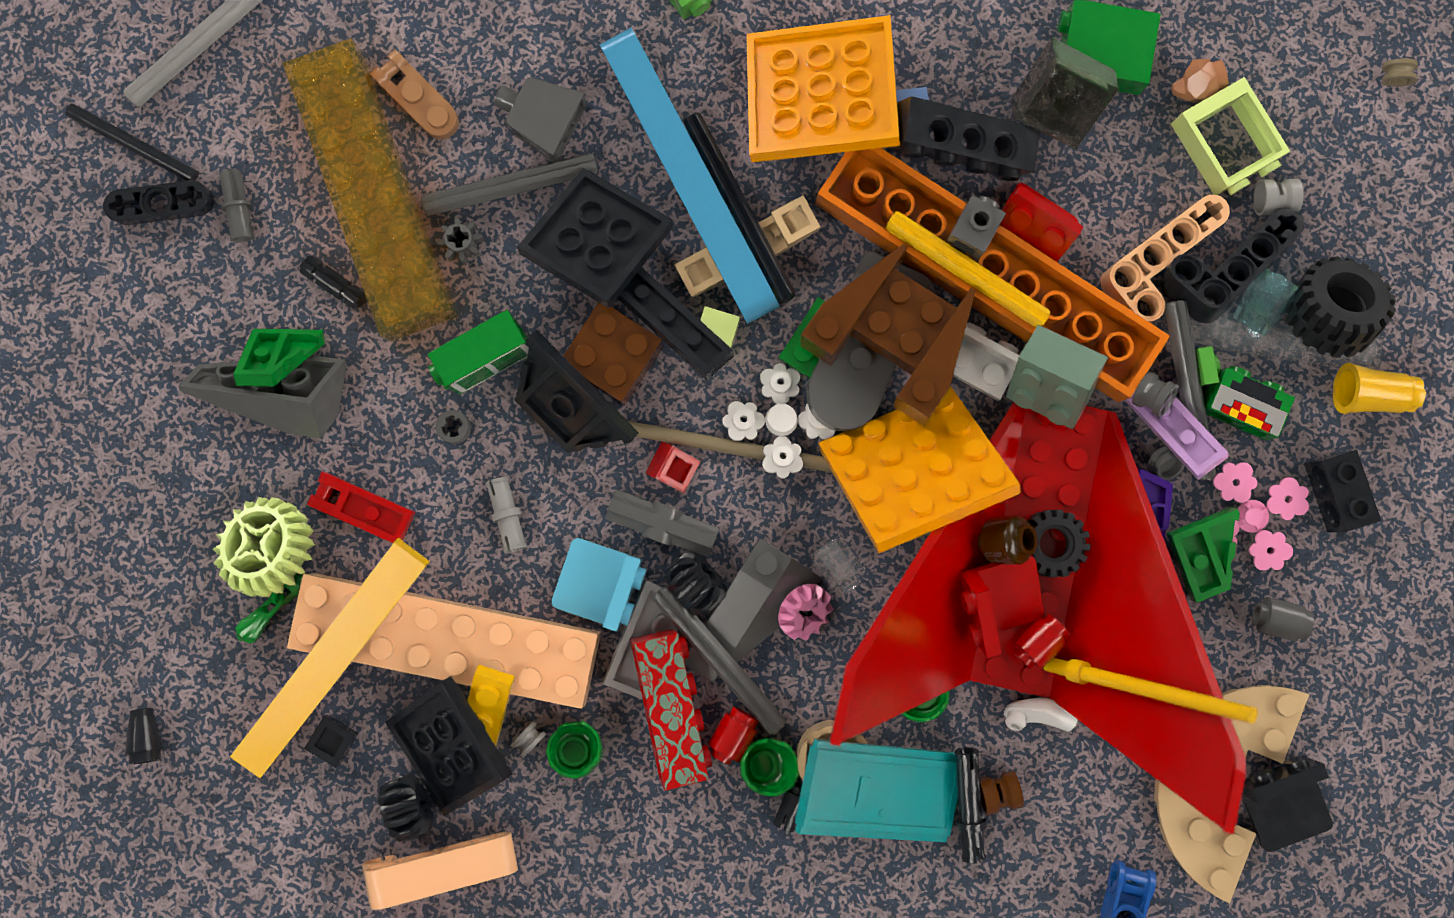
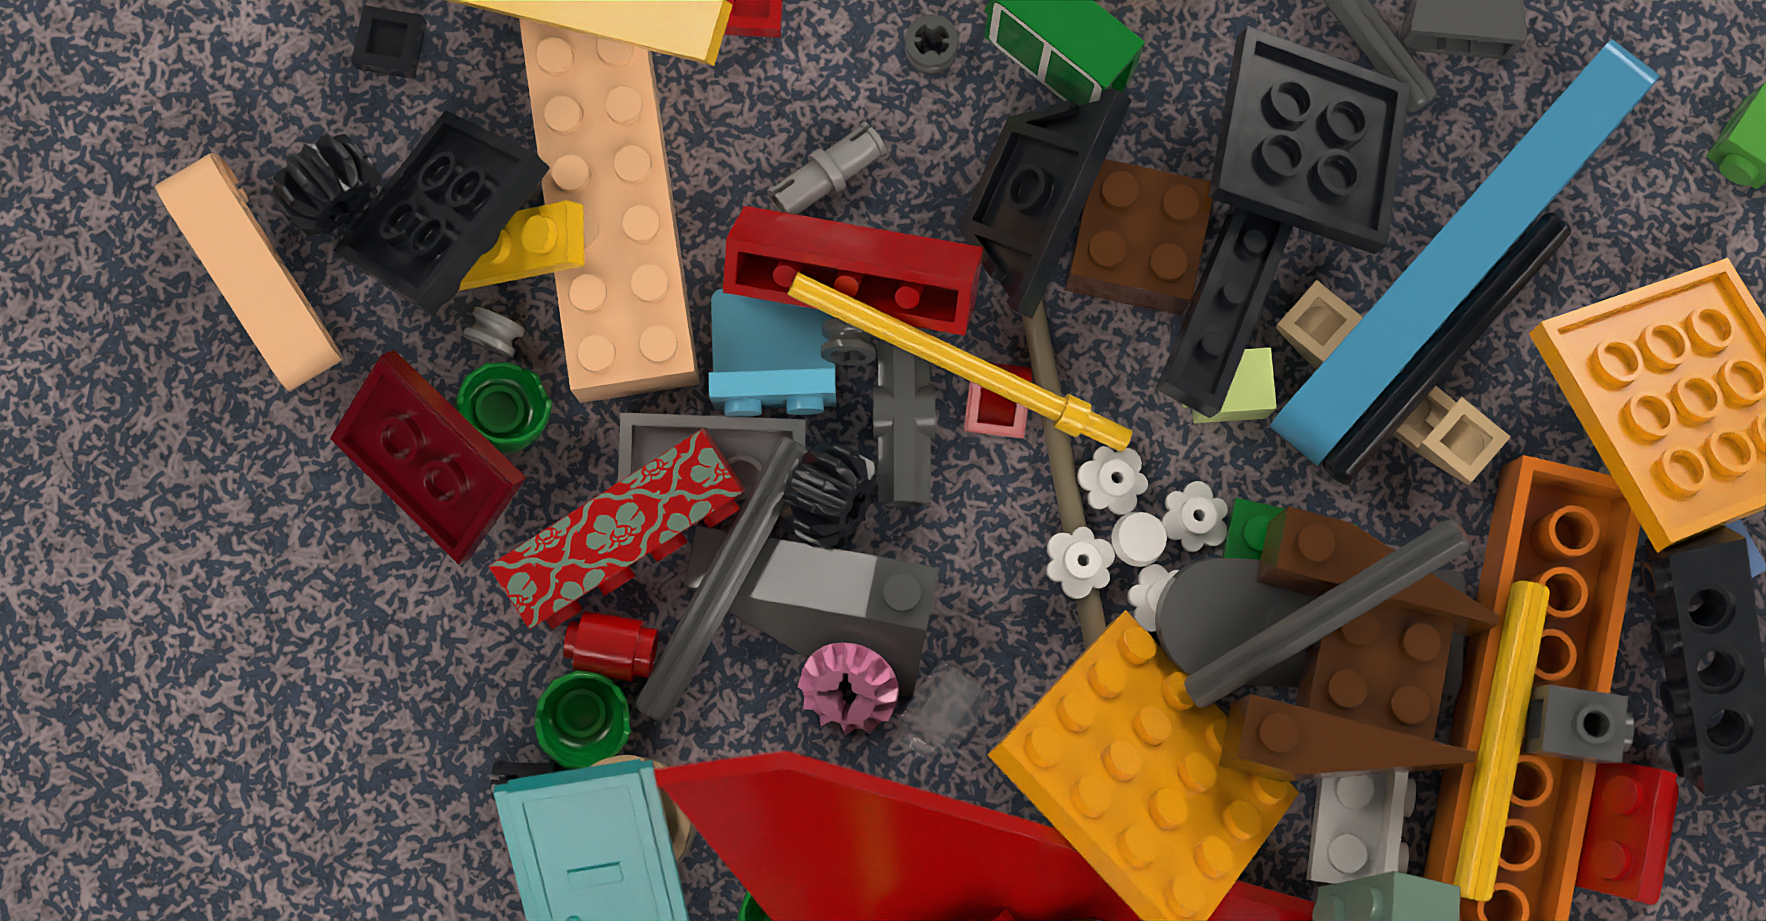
camera: 70 degrees right, 5 degrees down
(571, 523) = (898, 273): none -> red brick
(587, 803) = (427, 457): none -> dark red tile
(611, 539) = (846, 344): none -> dark grey bush
(698, 431) = (1068, 413): none -> yellow bar
(867, 336) = (1328, 612): none -> dark grey axle

